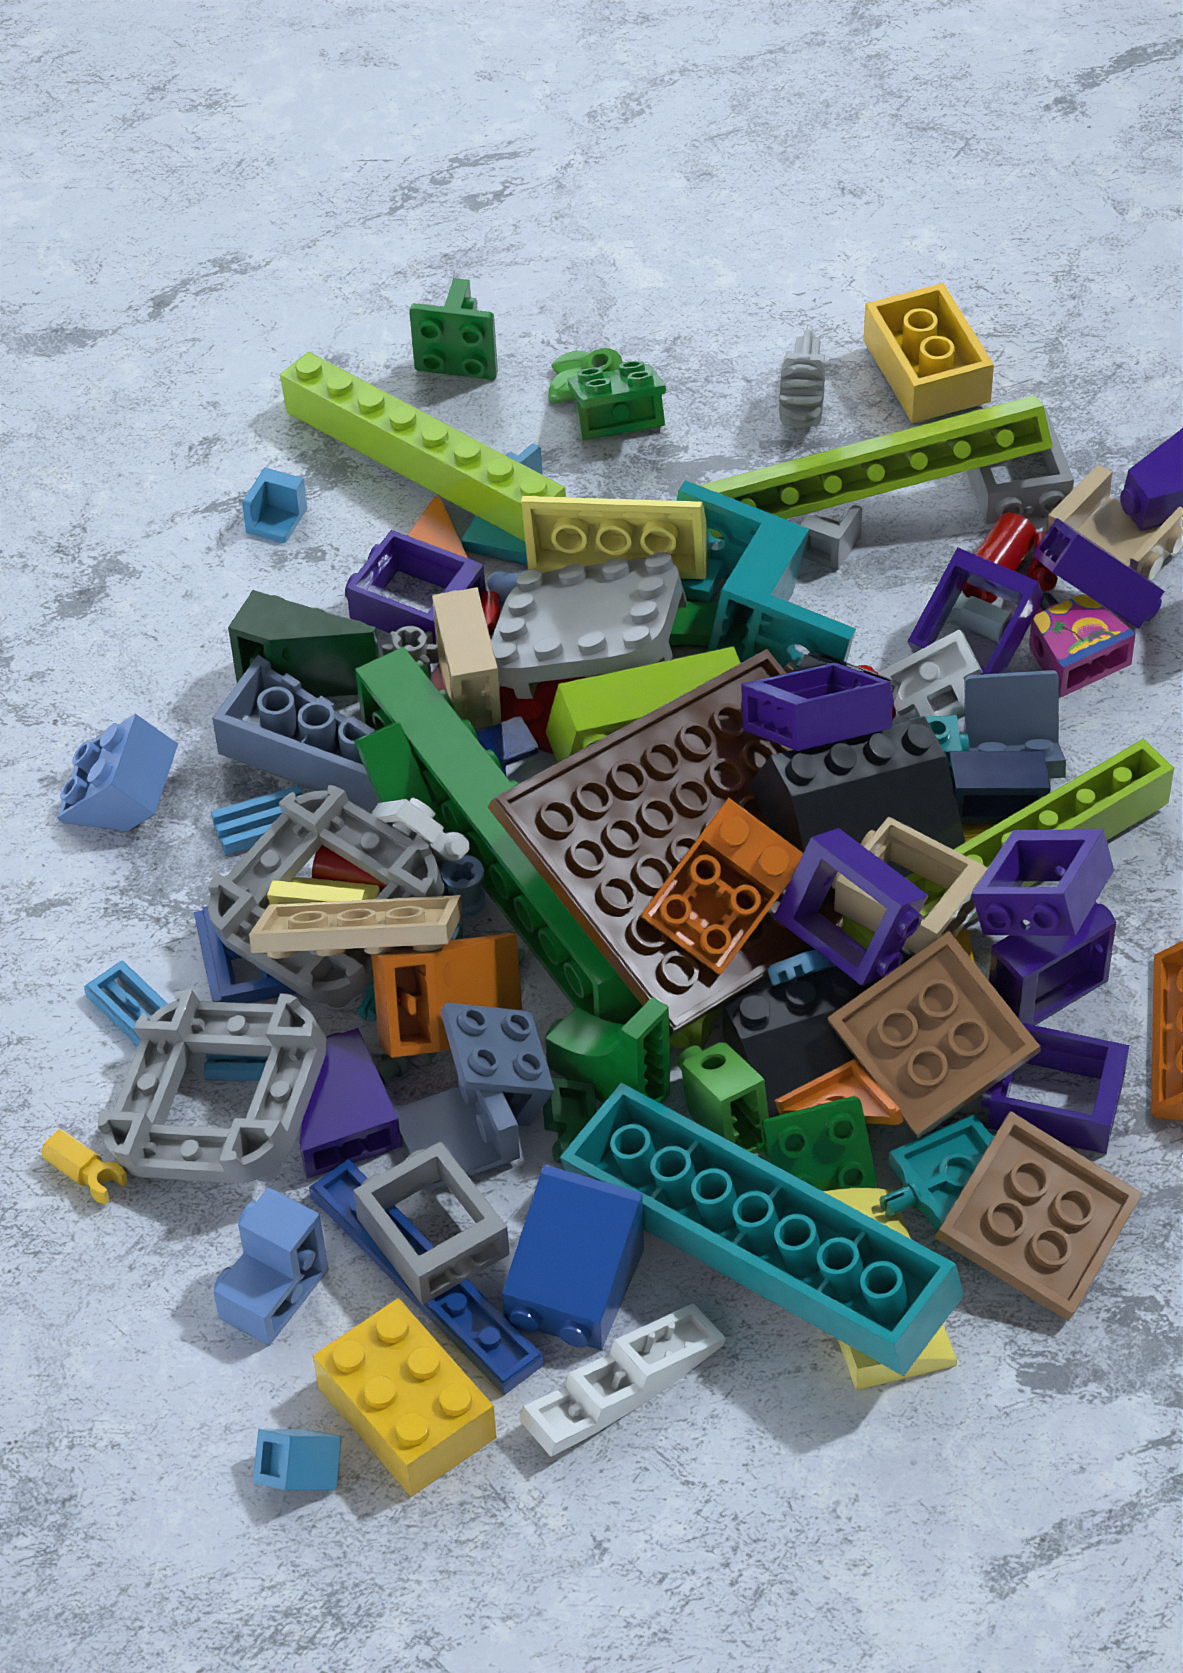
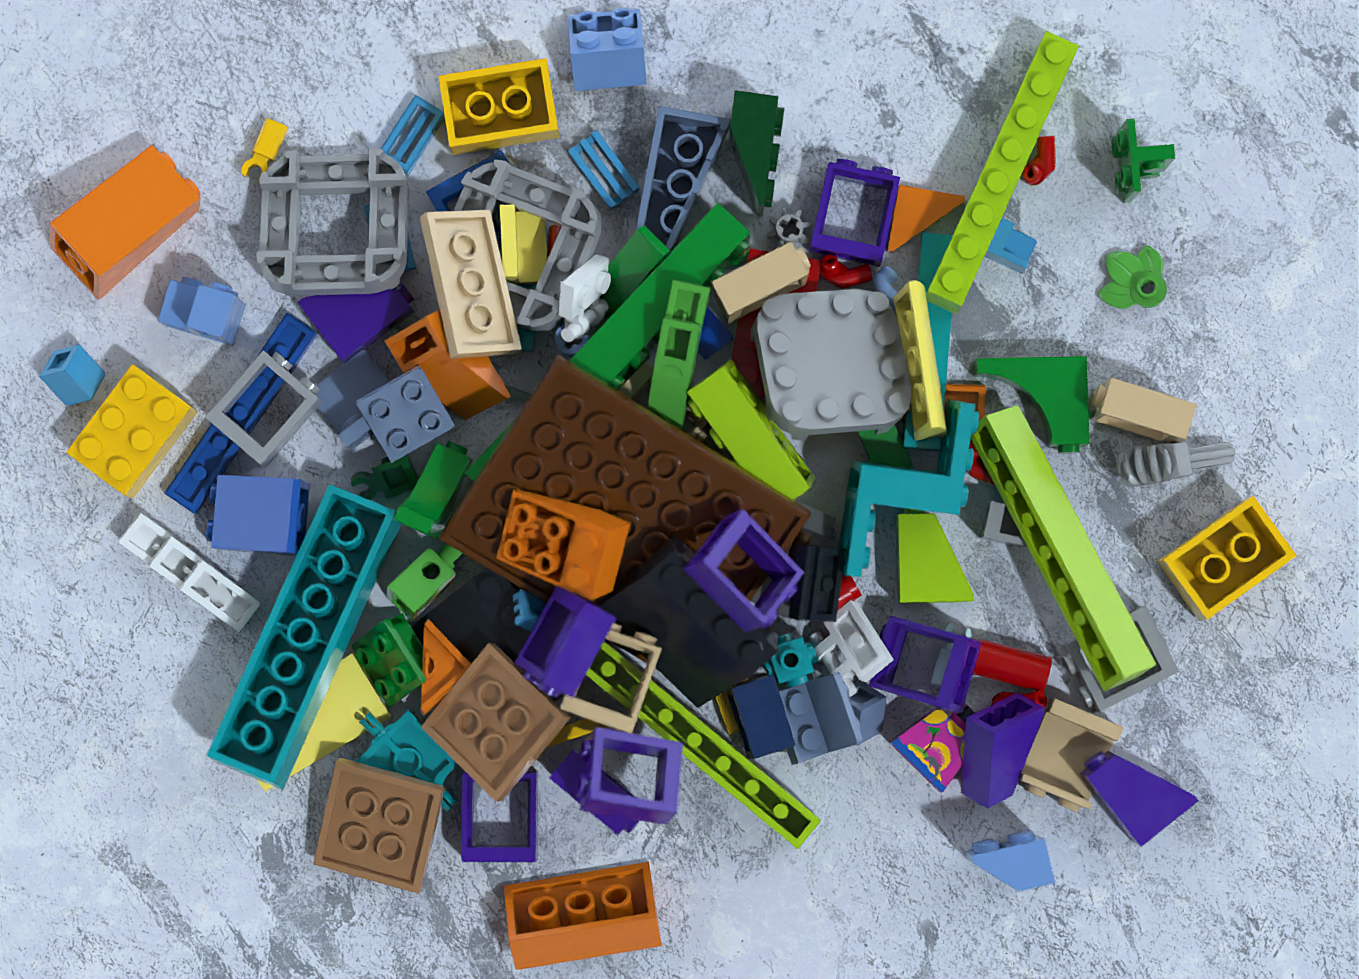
camera: 75 degrees right, 35 degrees up
(113, 1345) = (123, 220): none -> orange slope
(140, 890) = (499, 106): none -> yellow brick
(274, 505) = (918, 72): dark azure panel -> none
(507, 726) = (678, 352): none -> bright green slope
(617, 400) = (1109, 311): green bracket -> none
(695, 454) = (1054, 388): none -> green arch
(737, 382) = (1141, 411): none -> tan window
(861, 597) = (926, 562): none -> lime slope

